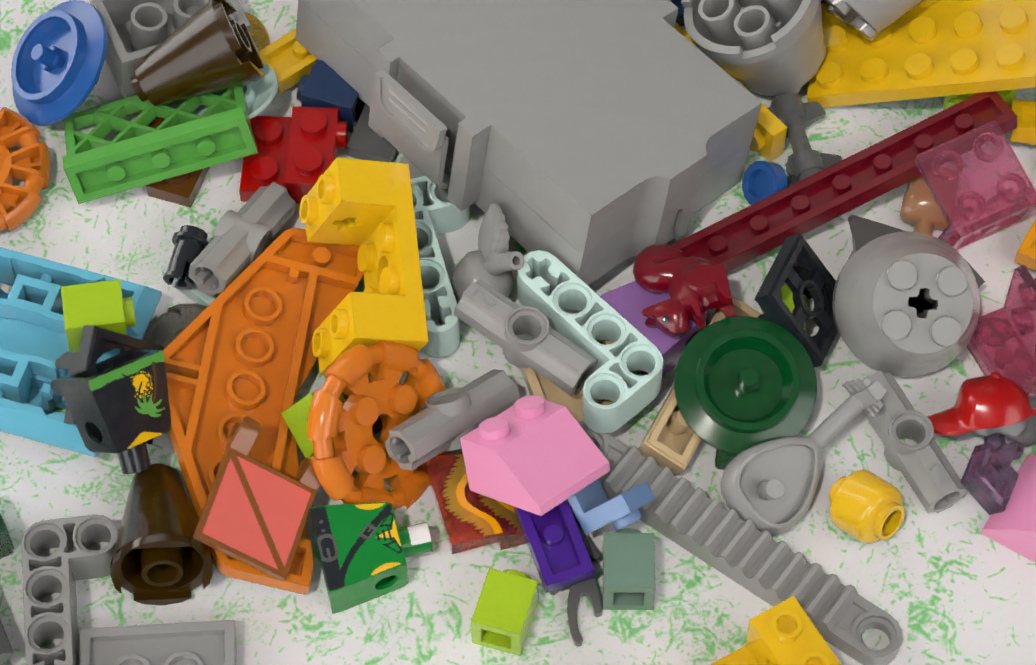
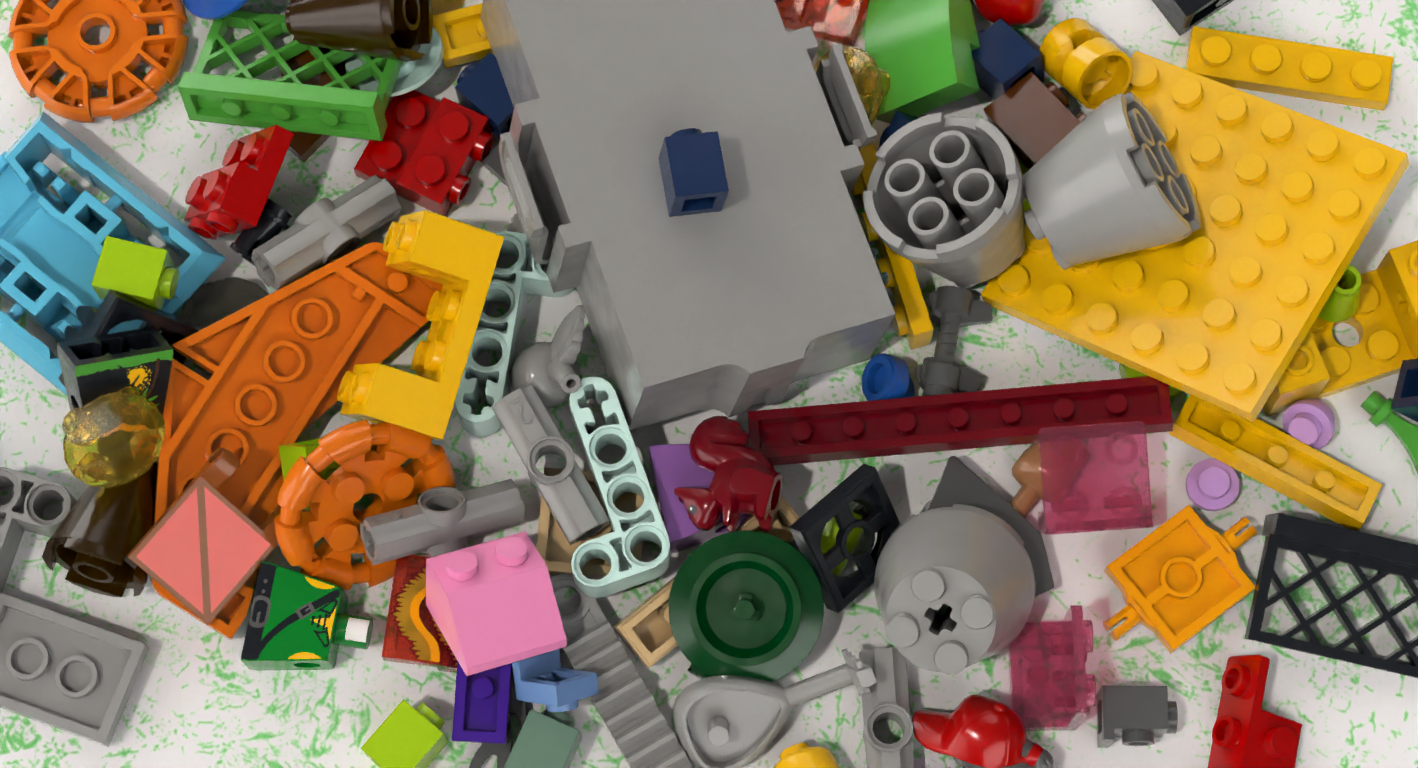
camera: 25 degrees right, 15 degrees up
(139, 444) = (113, 438): none -> clear yellow dish
(151, 227) = (236, 193): none -> red plate
(551, 46) = (693, 172): none -> dark blue brick

